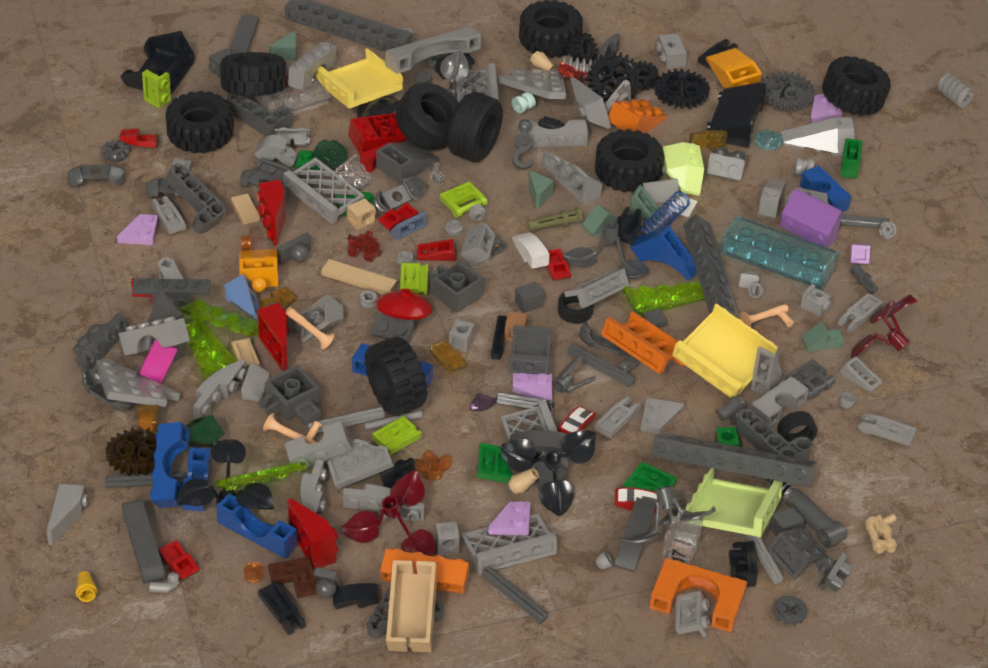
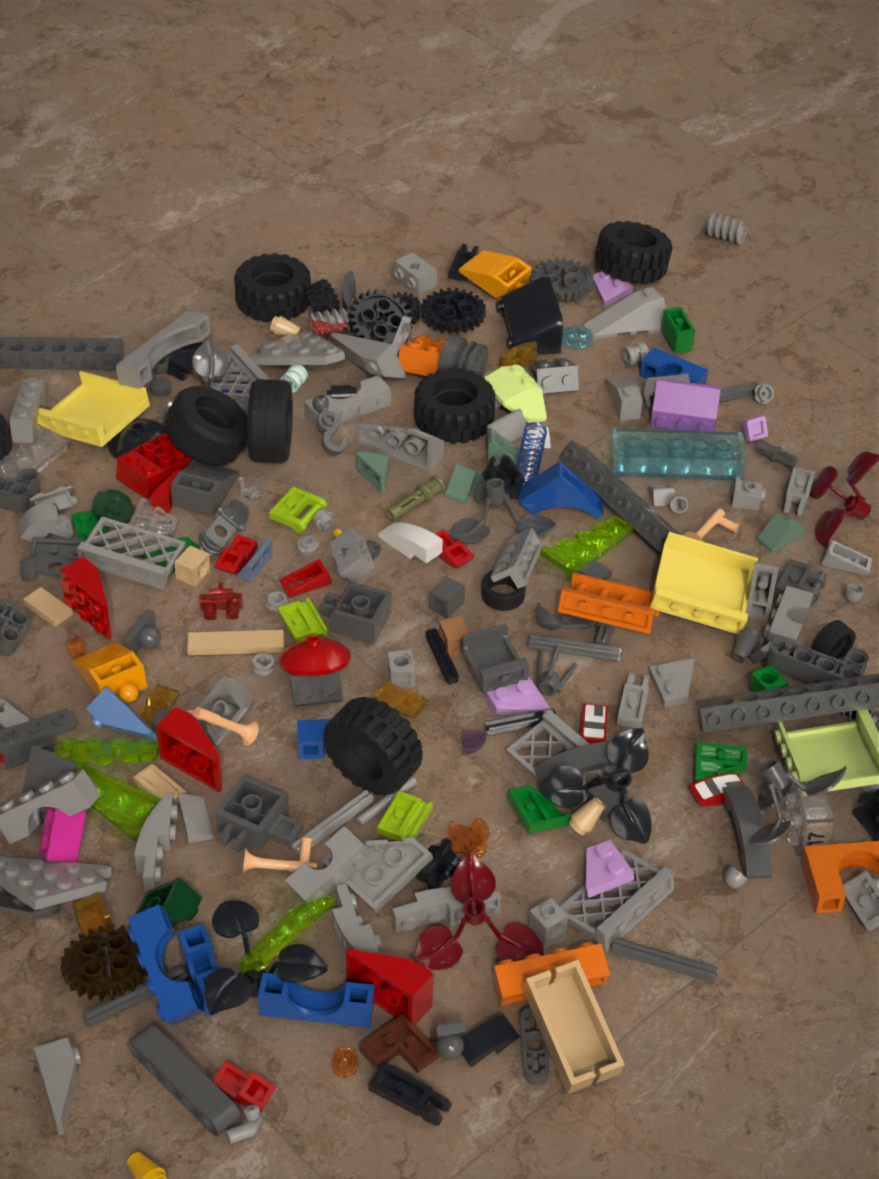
camera: 25 degrees left, 0 degrees up
(659, 125) = (459, 354): none -> dark grey wheel

